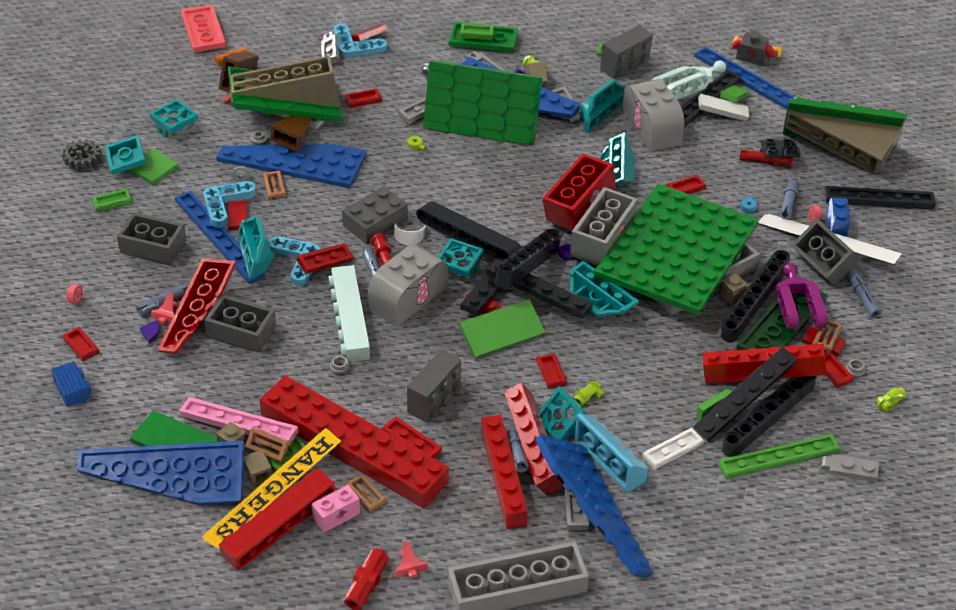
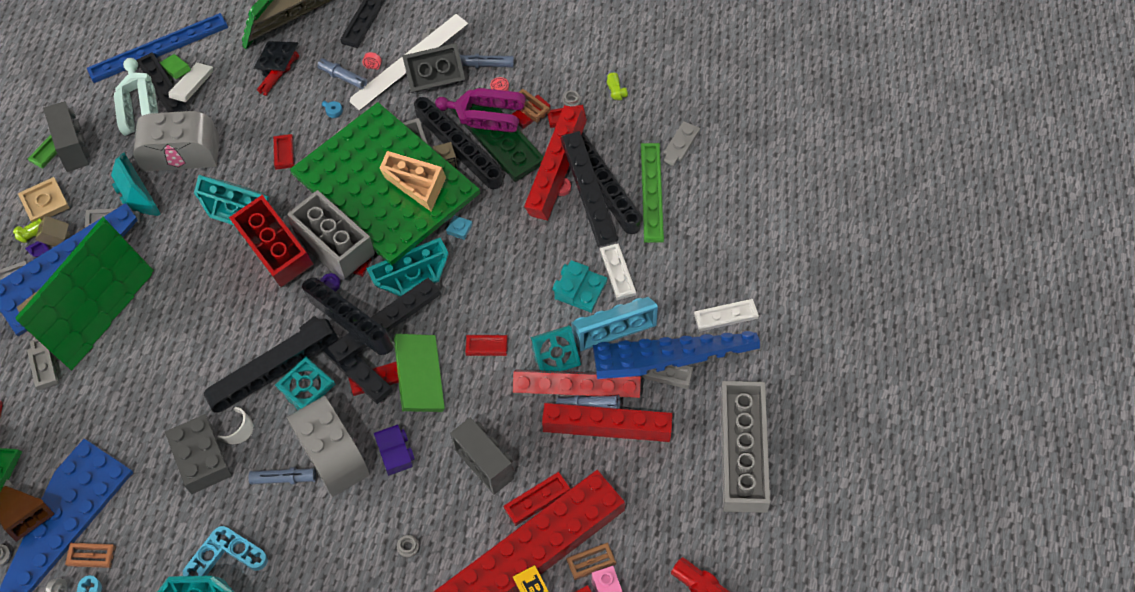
camera: 70 degrees left, 15 degrees up
(325, 258) = (246, 523): red plate -> none
(350, 314) = (337, 516): light aqua brick -> none
(382, 250) = (256, 460): red pin -> none
(410, 564) = (692, 539): coral piece -> none
(416, 143) = (98, 384): lime piece -> none
(422, 331) = (393, 449): none -> dark purple brick
(565, 63) = (43, 200): none -> tan plate
(585, 394) = (530, 323): lime arm -> none
(641, 421) = (579, 286): none -> teal plate
(663, 545) = (726, 315): none -> white tile
(665, 322) = (459, 227): none -> medium azure plate
(678, 256) = (414, 177): none -> light nougat wedge
(708, 405) = (581, 221): bright green tile -> none
(755, 48) = (118, 28): dark grey torso -> none
(838, 216) = (386, 44): blue brick -> none
(840, 311) = (499, 84): none -> coral tile

